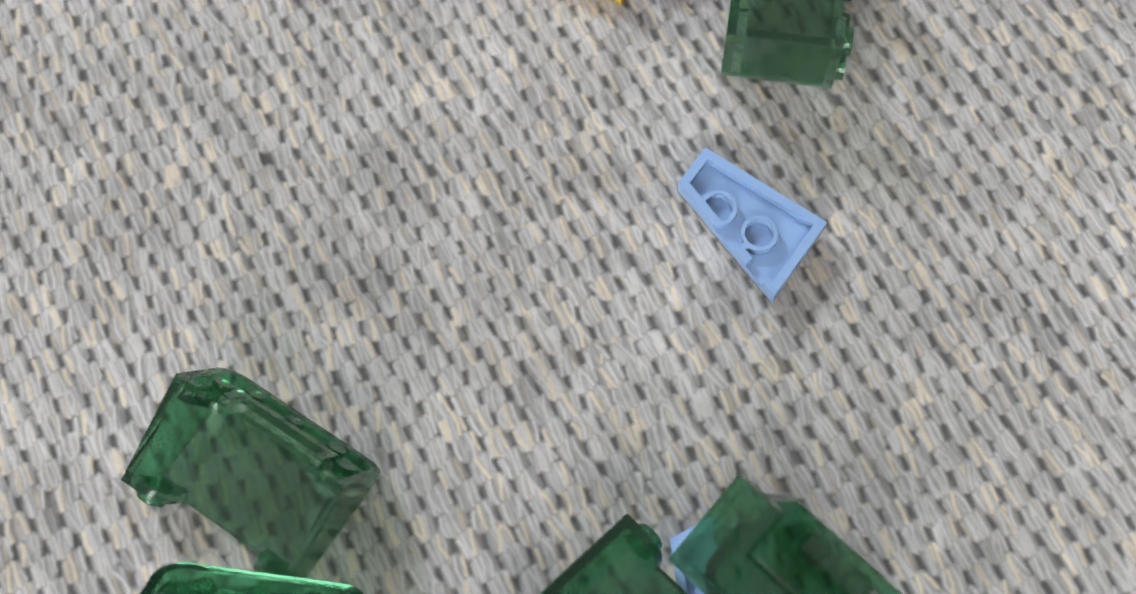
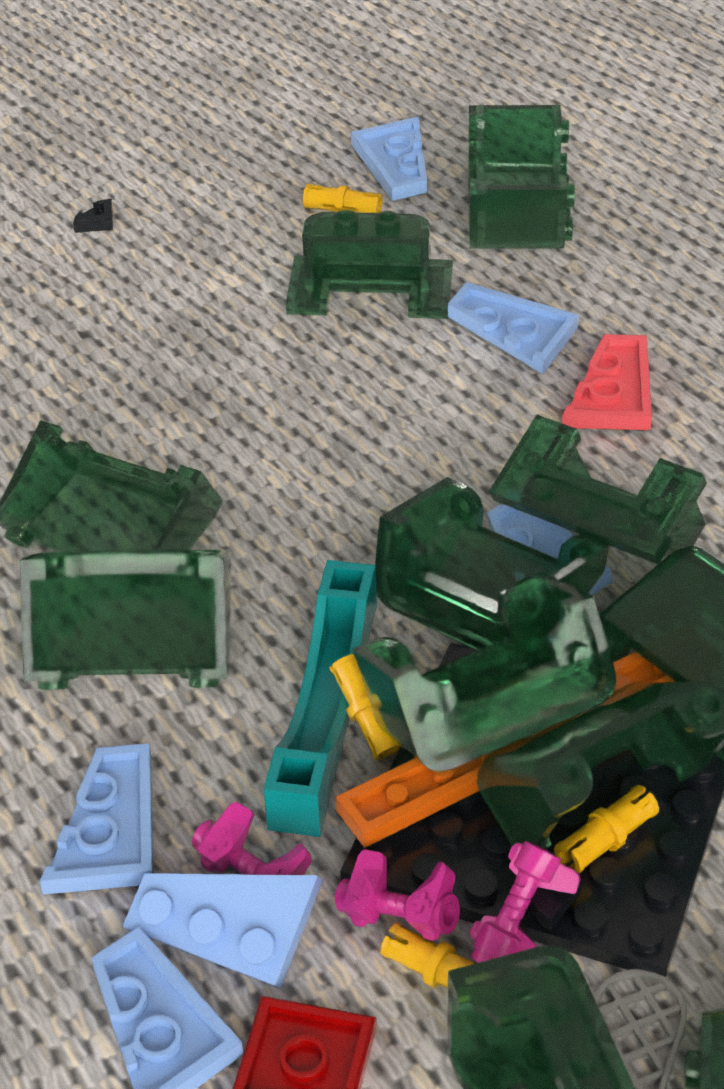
camera: 10 degrees left, 25 degrees down
(599, 105) = (369, 255): none -> clear green windscreen
(851, 345) = (615, 387): none -> coral wing

